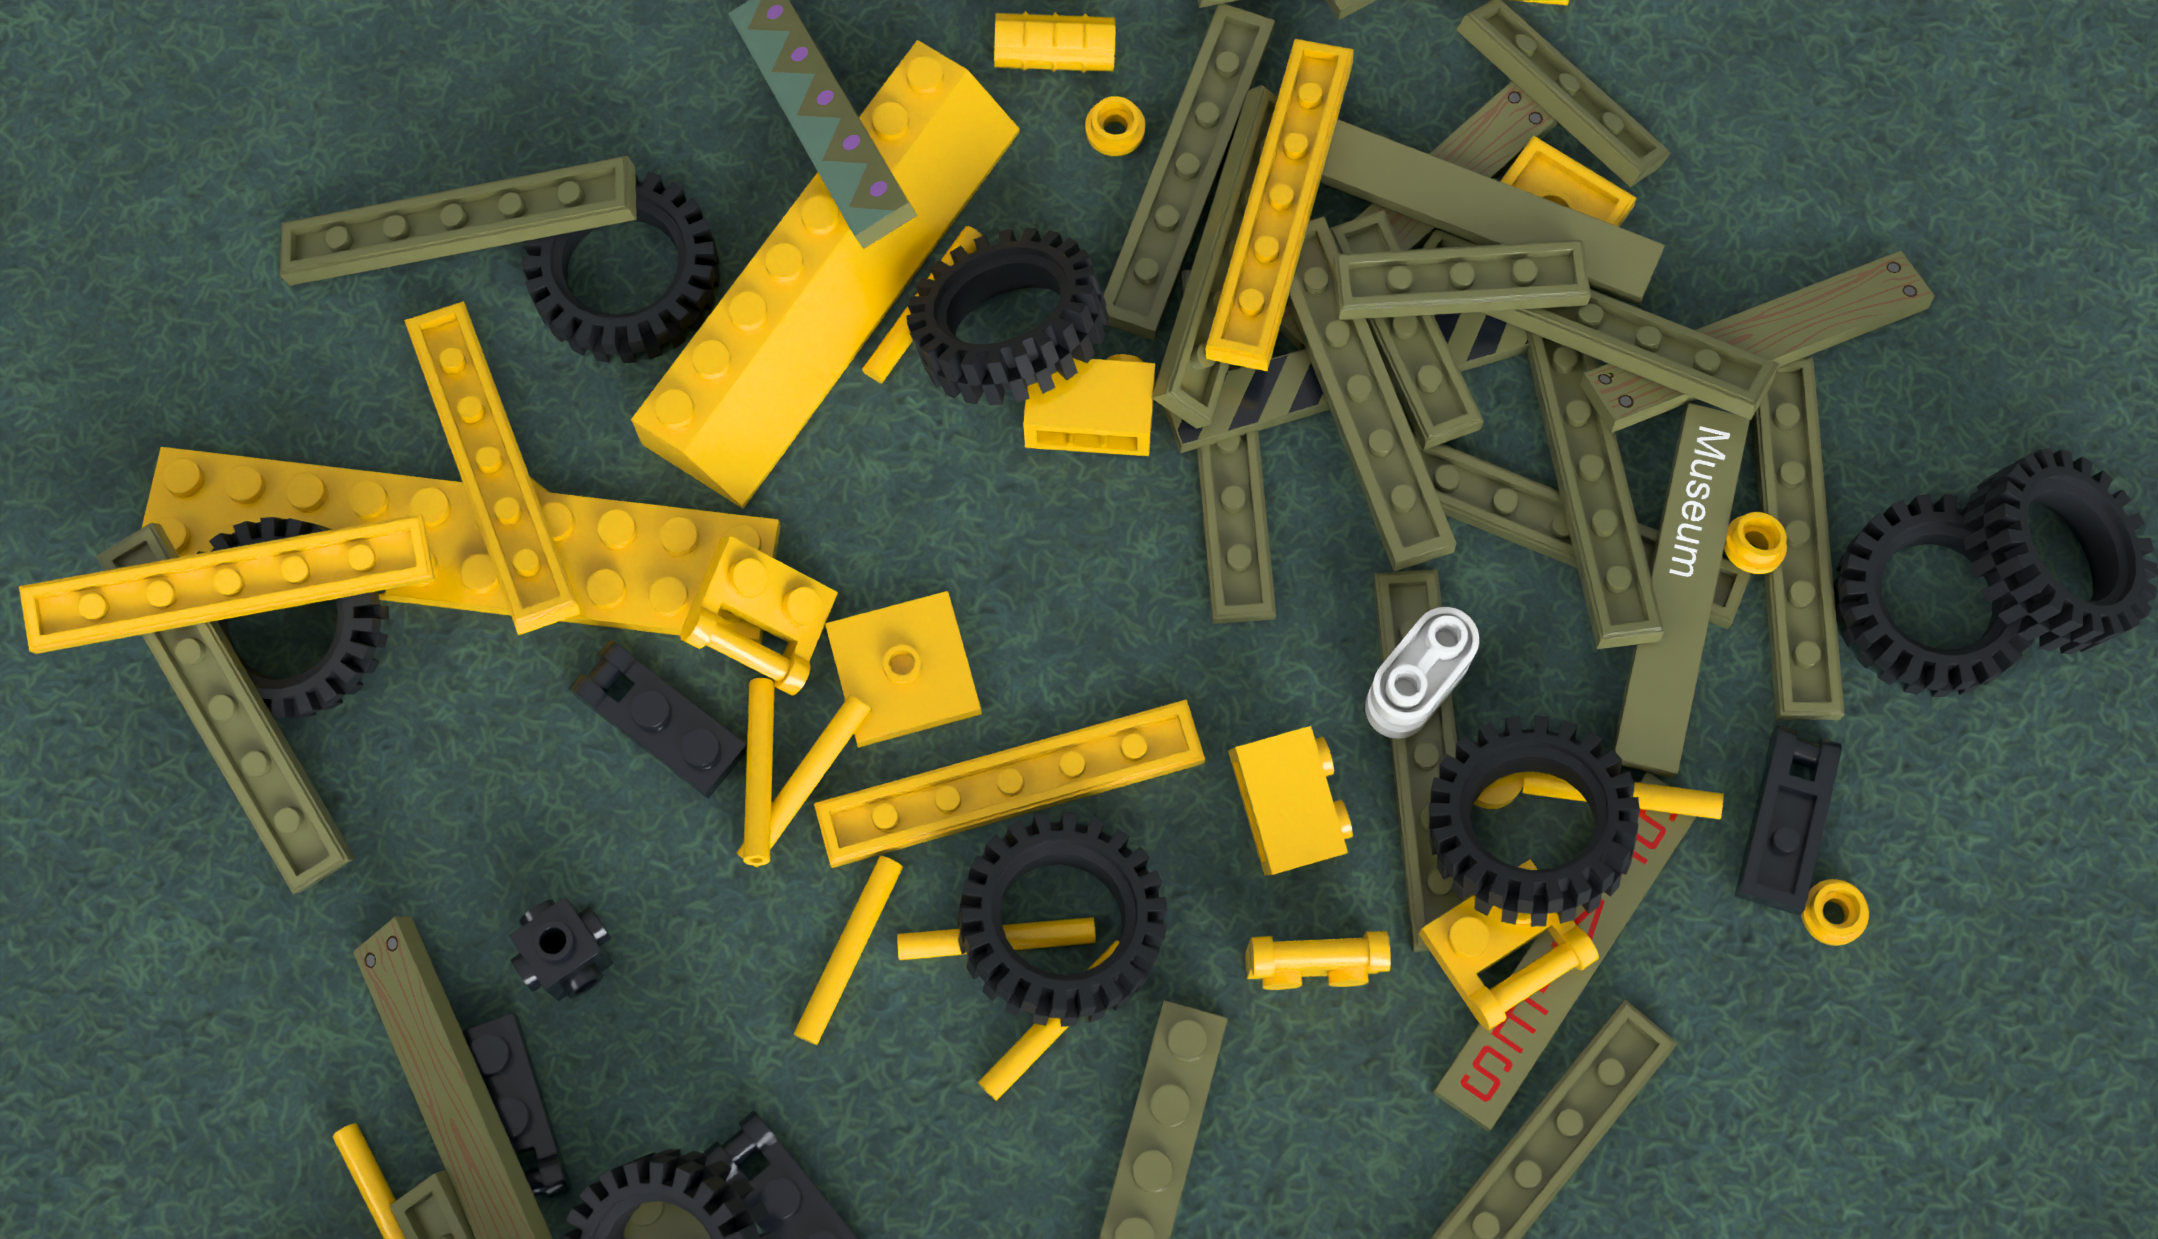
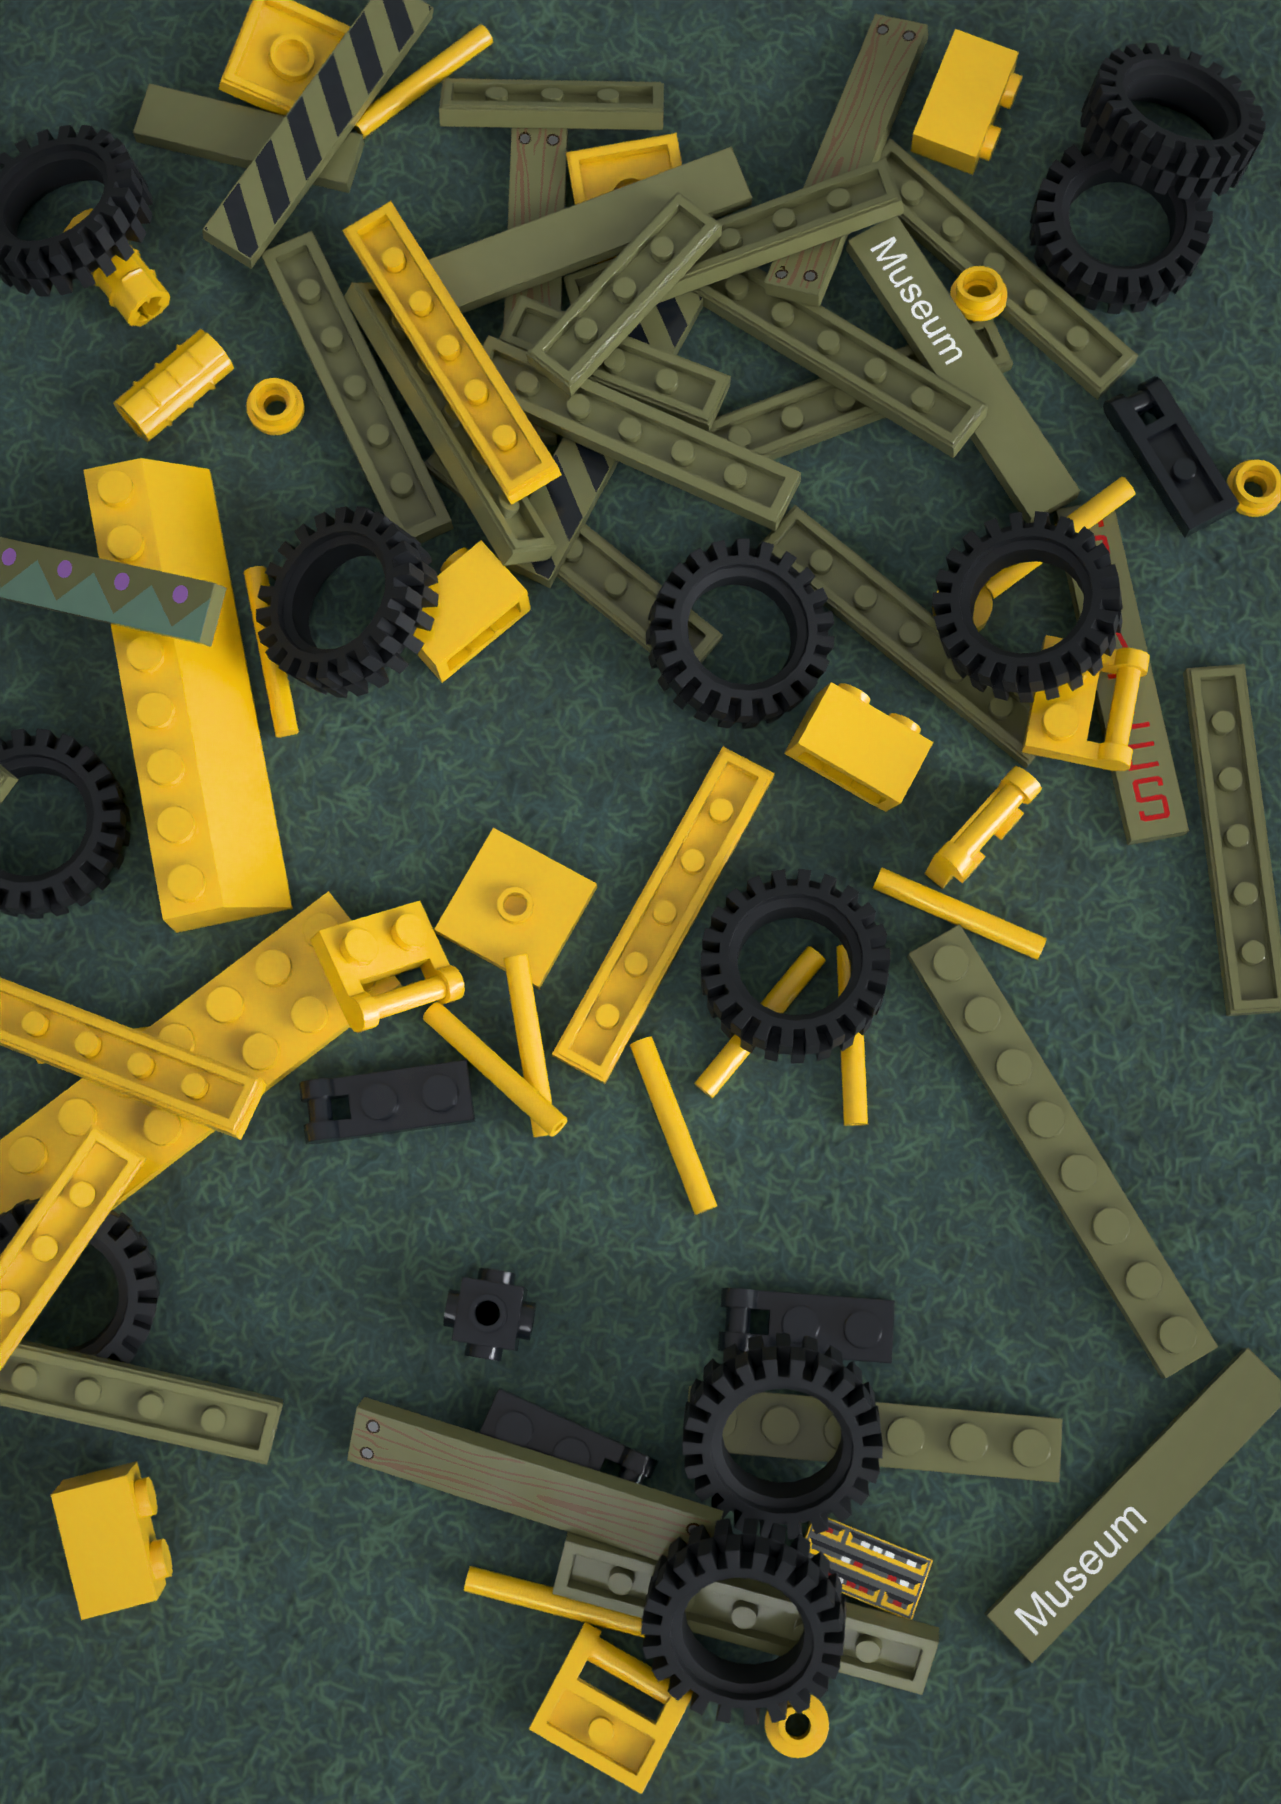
camera: 45 degrees left, 5 degrees up
(131, 833) = (111, 1539): none -> yellow brick
(1239, 1011) = (959, 913): none -> yellow piece
(1343, 577) = (779, 582): none -> black tyre
(1421, 672) = (861, 579): white brick -> none
(1901, 384) = (965, 101): none -> yellow brick

